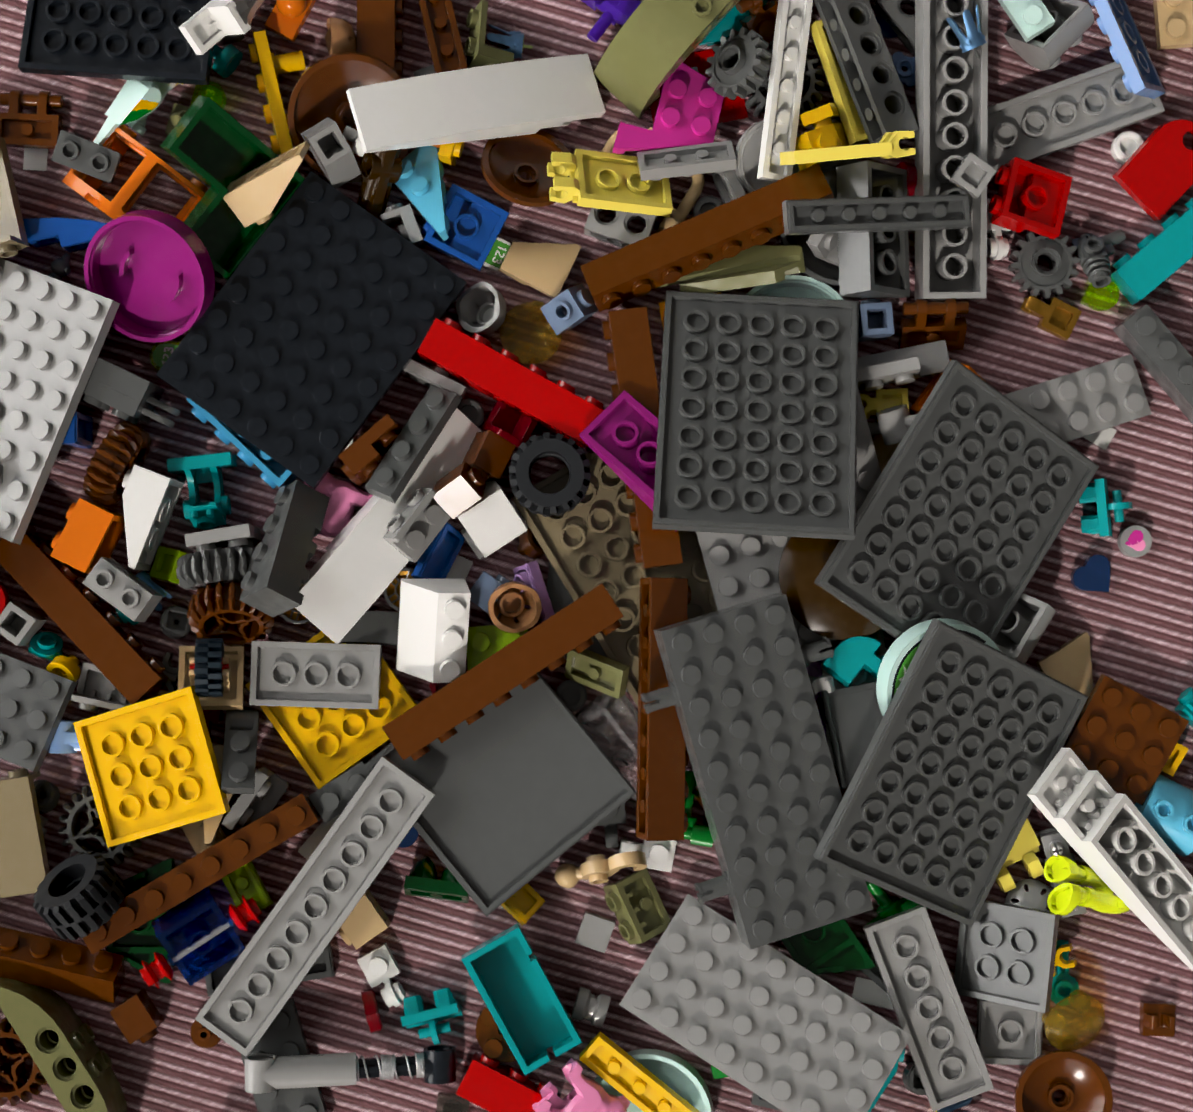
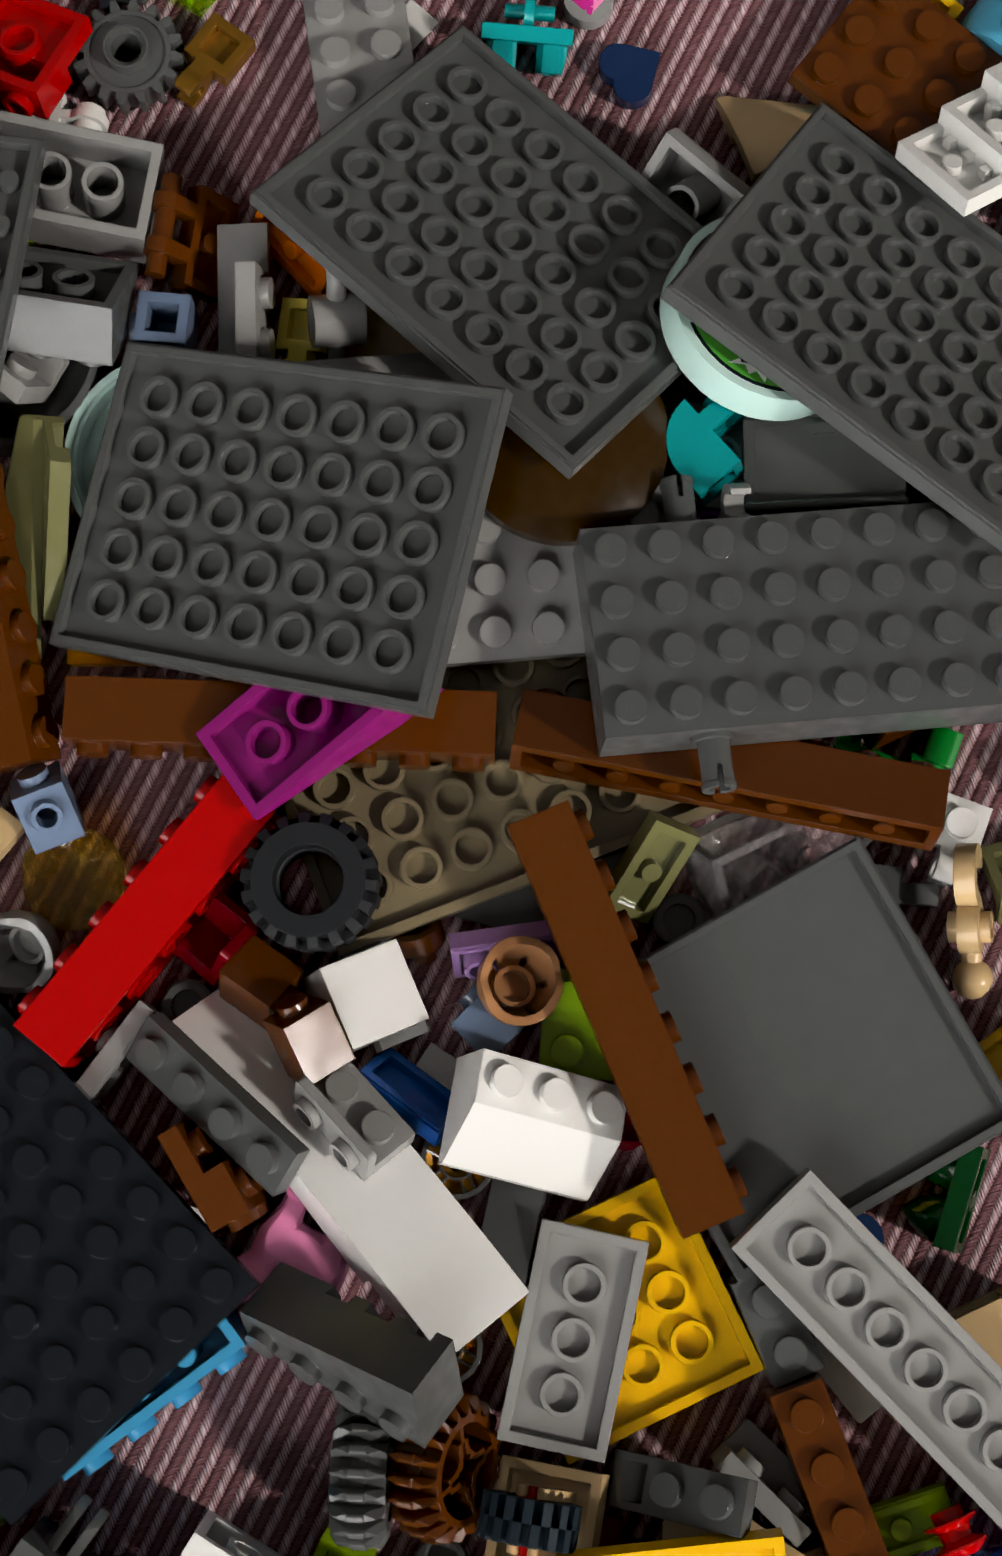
camera: 85 degrees left, 5 degrees down
(203, 470) = (193, 1470): teal tile -> none
(231, 536) = (313, 1442): light grey plate -> none

